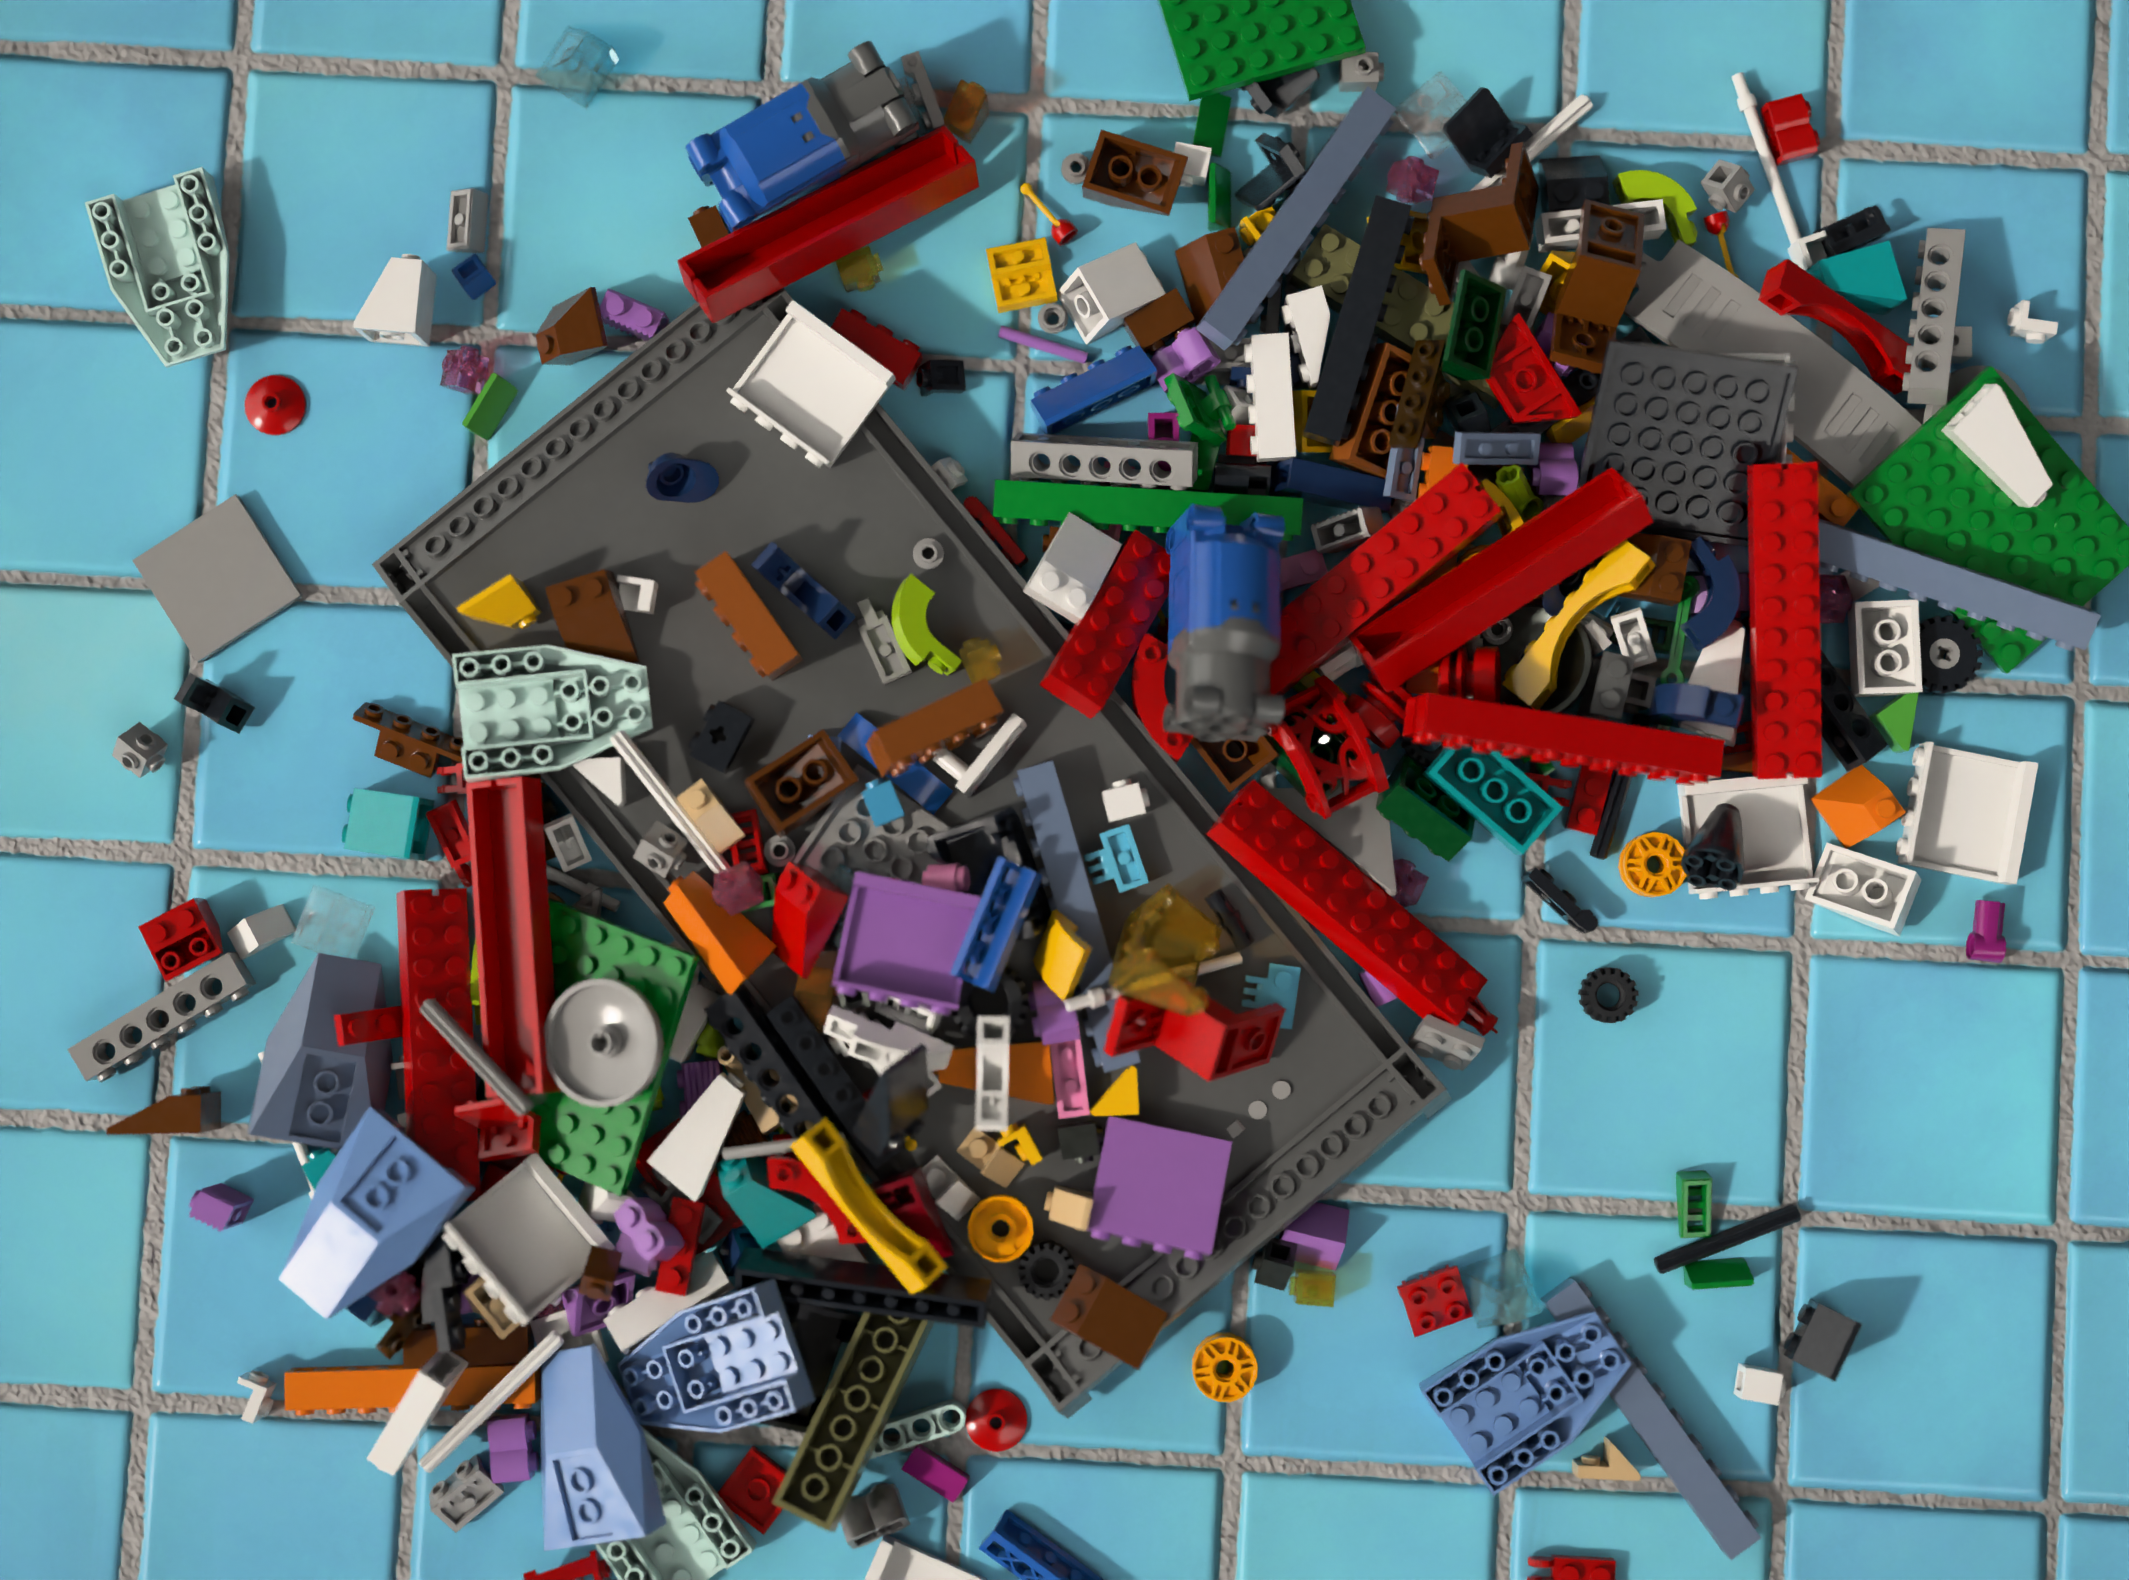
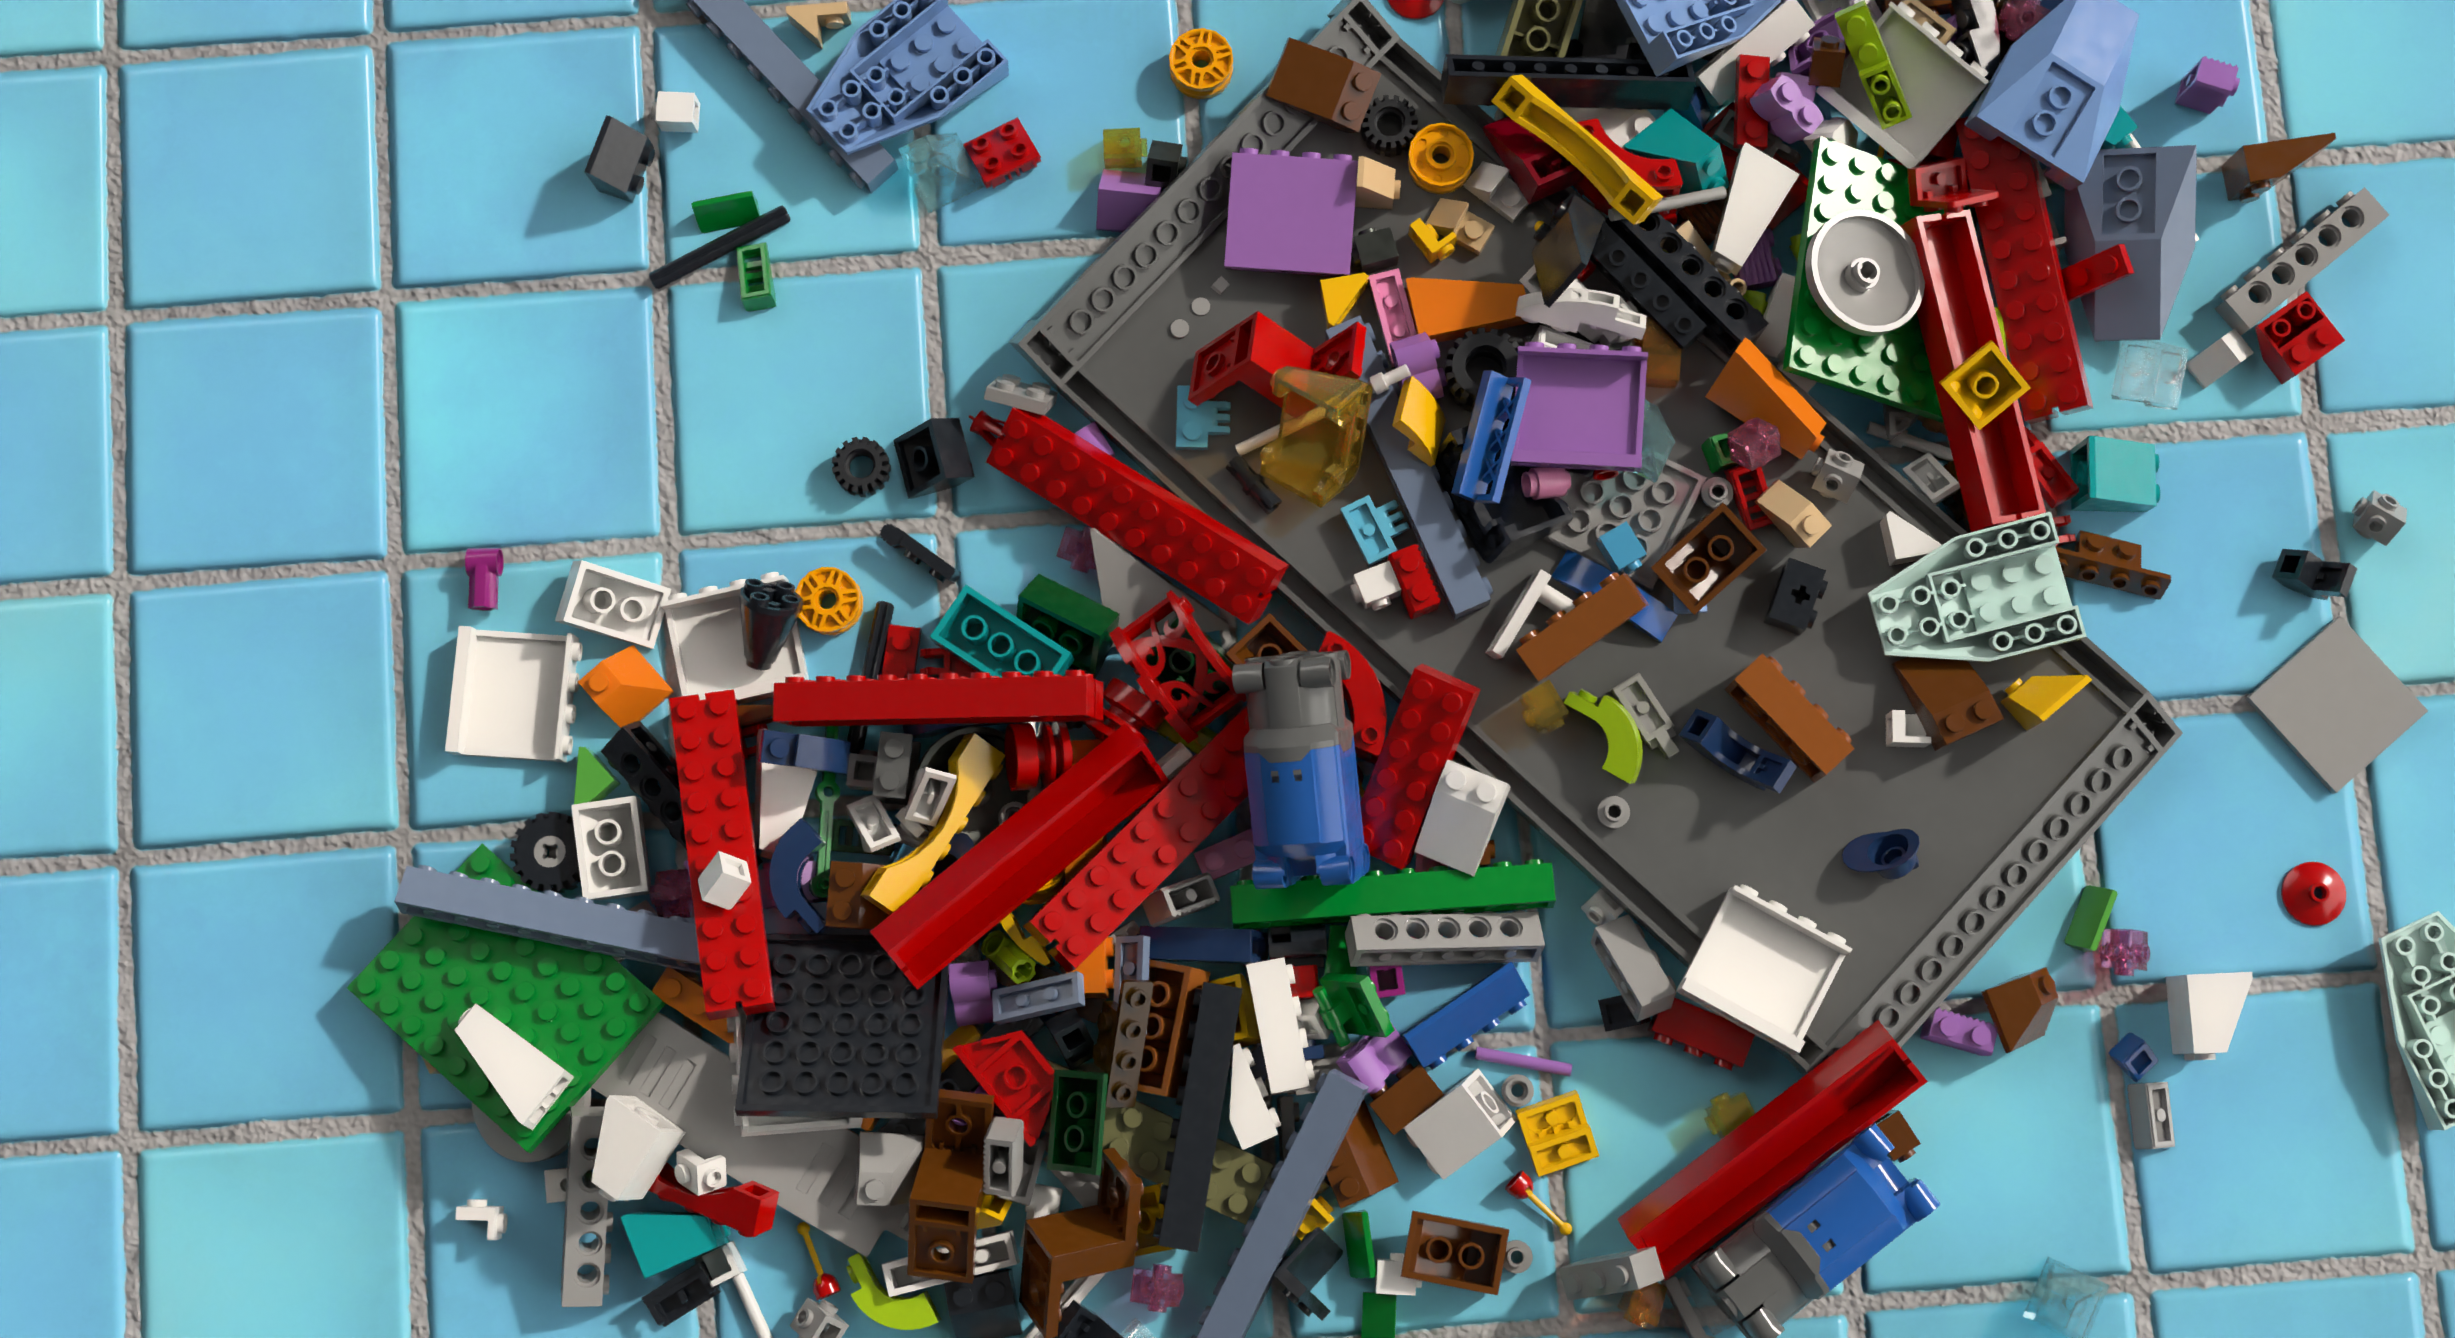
camera: 175 degrees right, 5 degrees down
(476, 1057) = (1987, 245): light grey axle -> none
(505, 911) = (1985, 385): none -> yellow slope
(554, 1262) = (1873, 64): none -> lime slope
(668, 801) = (1840, 523): white axle -> none
(804, 916) = (1682, 427): red slope -> none
(929, 411) = (1633, 967): none -> light grey brick
(992, 1073) = (1471, 292): white arch -> none
(994, 134) = (1611, 1273): none -> light grey brick
(995, 531) = (1526, 838): red hinge -> none
(1087, 800) = (1414, 581): none -> red brick
(1536, 994) = (933, 457): none -> black slope
(1546, 304) = (1003, 1156): none -> light grey brick
(1580, 653) = (929, 795): none -> white slope
(1654, 311) = (887, 1167): none -> light grey slope
(1788, 584) = (724, 880): none -> white panel
(1832, 325) = (700, 1174): none -> white bracket
(1893, 356) = (632, 1148): none -> white slope

